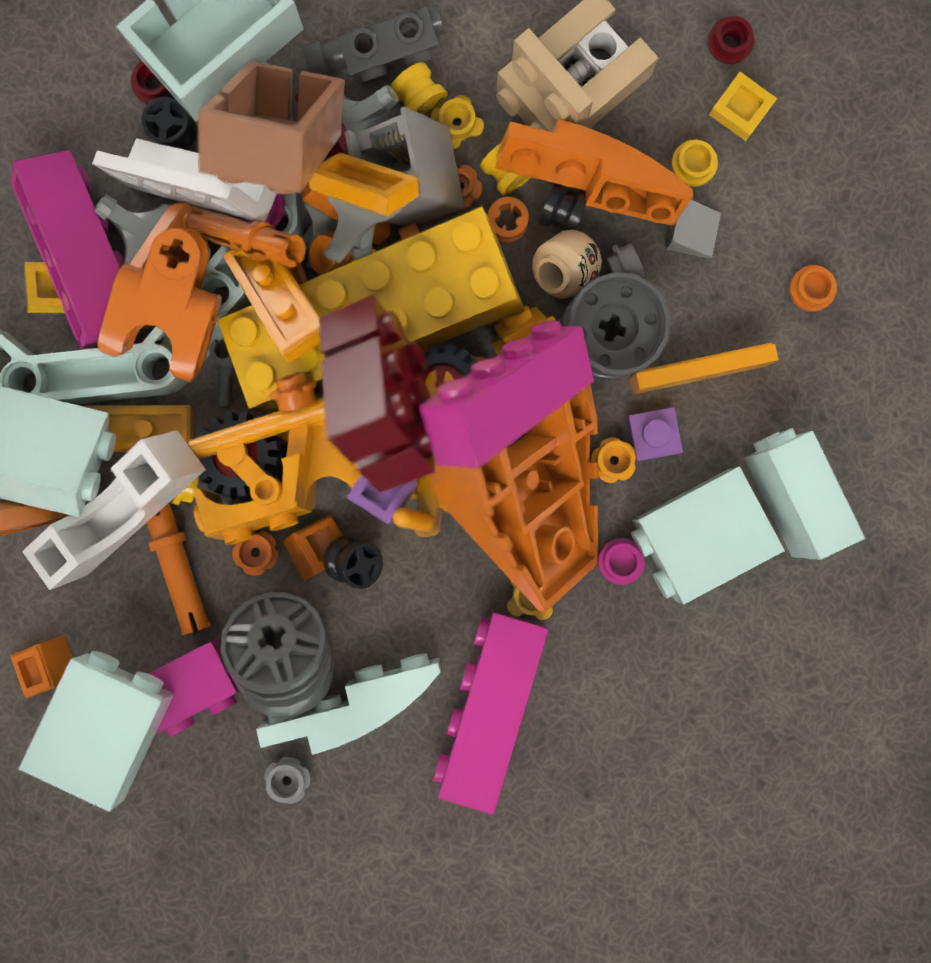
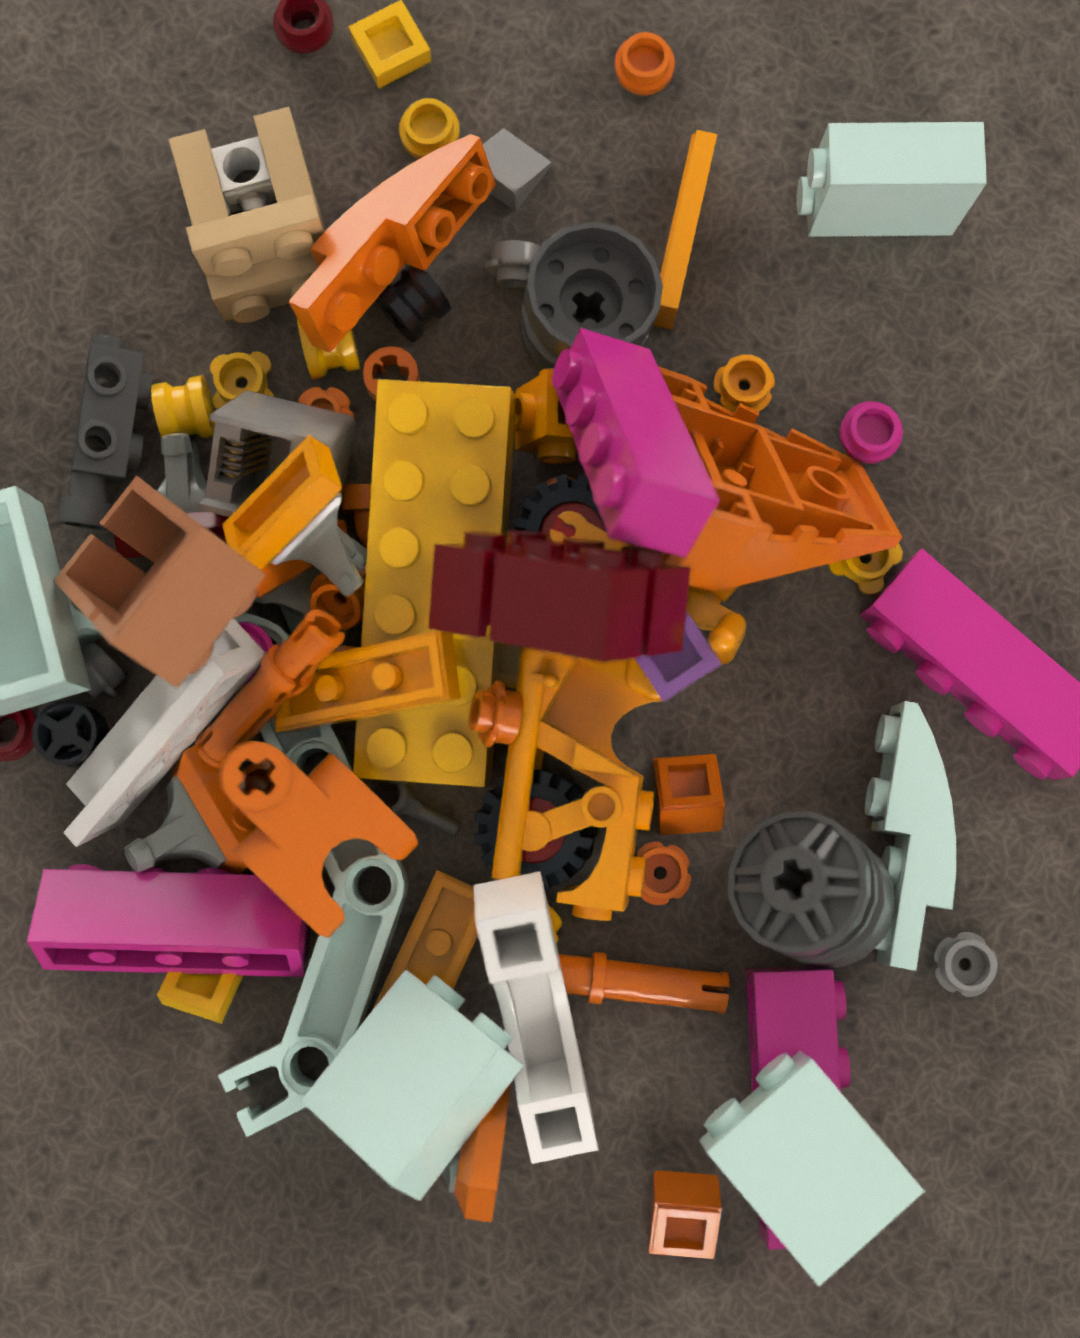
camera: 65 degrees left, 5 degrees down
(362, 569) = (730, 752): black wheel -> none
(566, 264) = (483, 327): tan head -> none
(654, 434) = (734, 323): medium lavender plate -> none
(706, 536) = (887, 316): light aqua brick -> none

